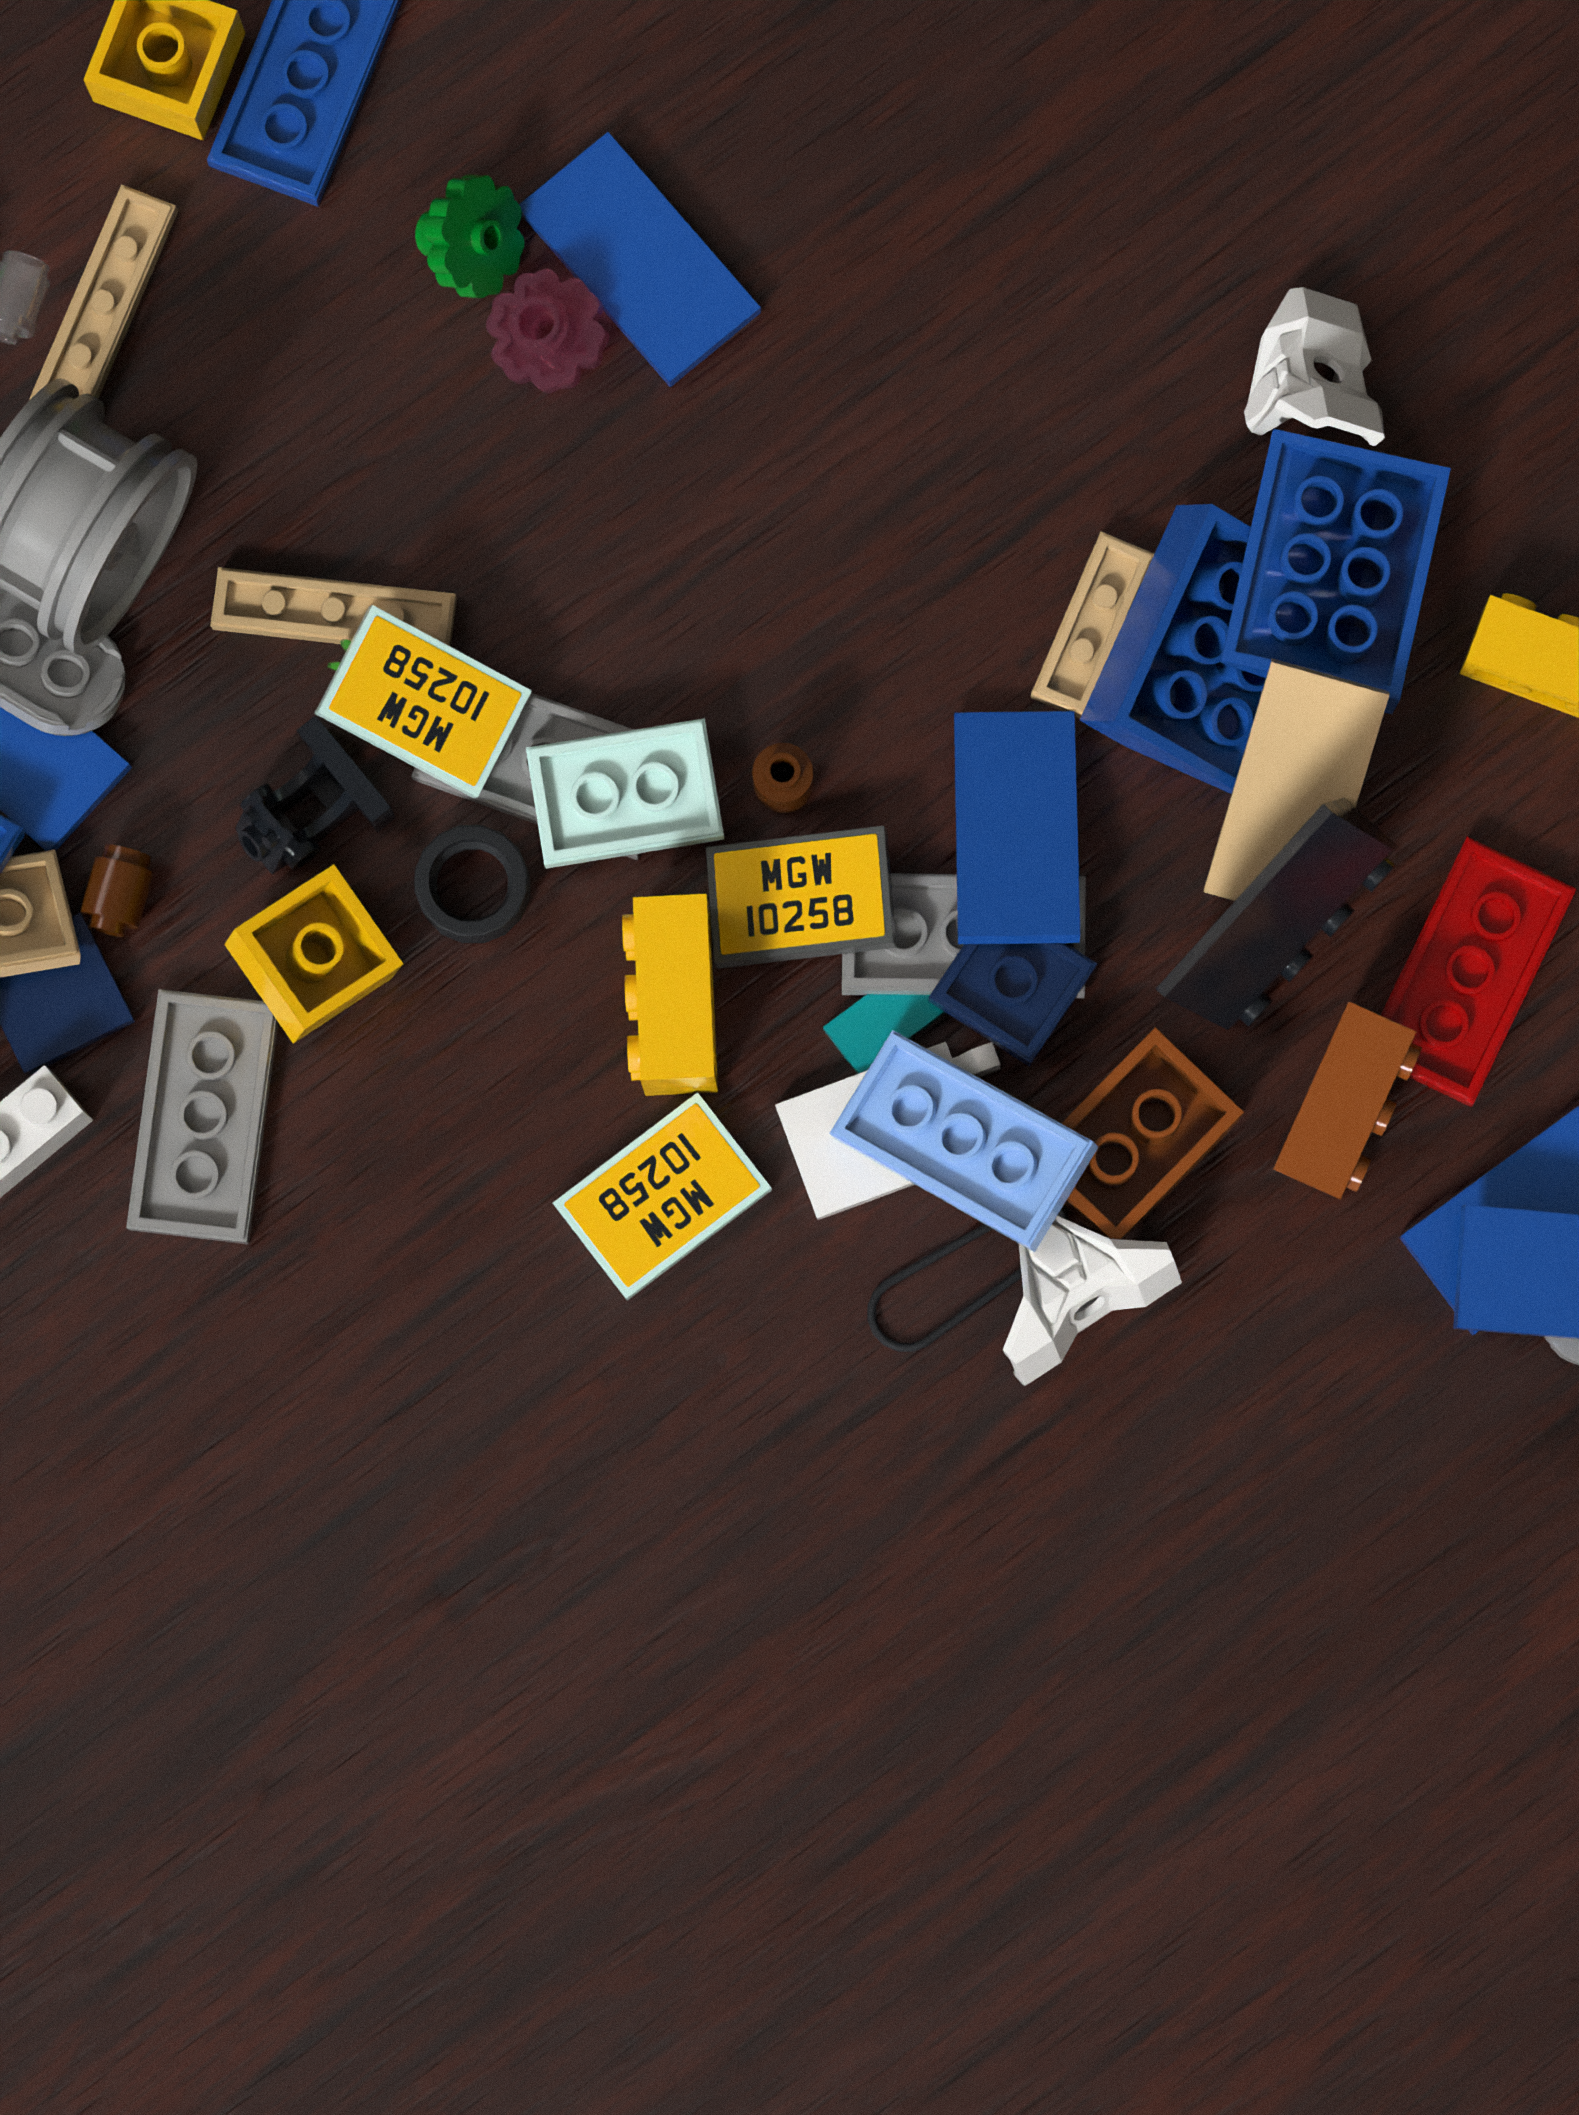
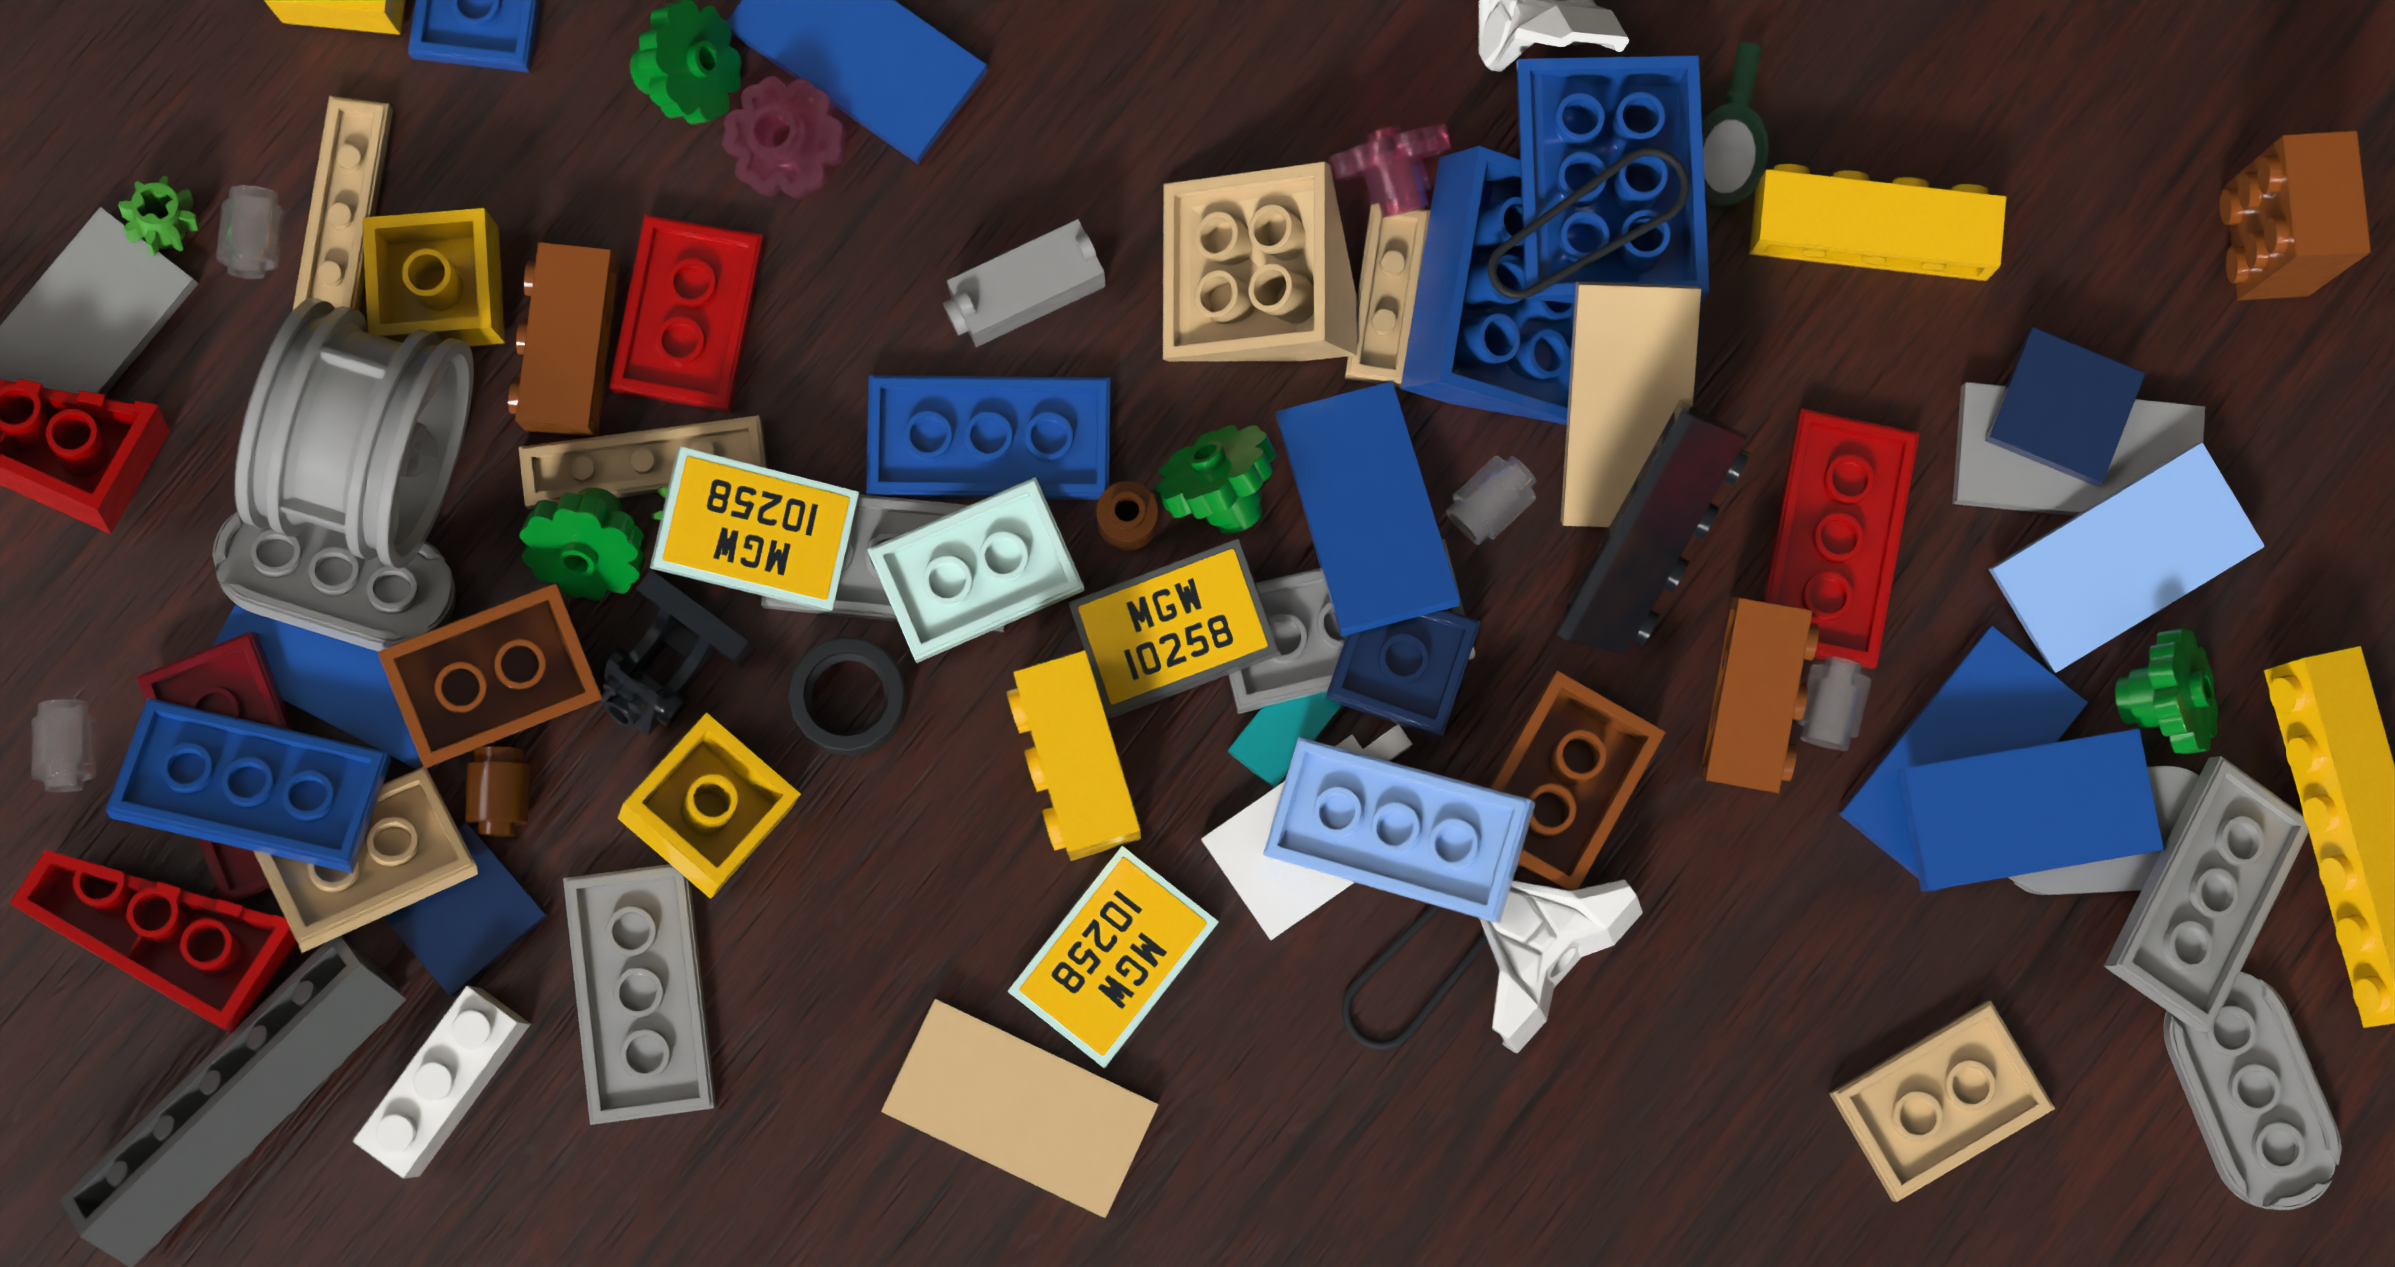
camera: 25 degrees left, 0 degrees up
(138, 777) = (489, 675): none -> dark orange brick
(179, 384) = (434, 276): none -> yellow brick
(257, 675) = (583, 544): none -> green plant
(288, 476) = (565, 340): none -> dark orange brick
(411, 478) = (687, 313): none -> red tile
(537, 1316) = (1020, 1108): none -> tan tile
(670, 667) = (987, 435): none -> blue tile
(741, 529) = (1024, 284): none -> light grey brick
(880, 763) = (1219, 478): none -> green plant
(970, 570) = (1257, 268): none -> tan slope
(1127, 503) = (1393, 166): none -> clear pink plant
(1141, 849) = (1492, 499): none -> clear brick
(1309, 634) = (1604, 250): none -> black piece
(1420, 1129) = (1834, 703): none -> clear brick
(1424, 1536) = (1941, 1101): none -> tan tile
(1470, 557) = (1735, 137): none -> piece

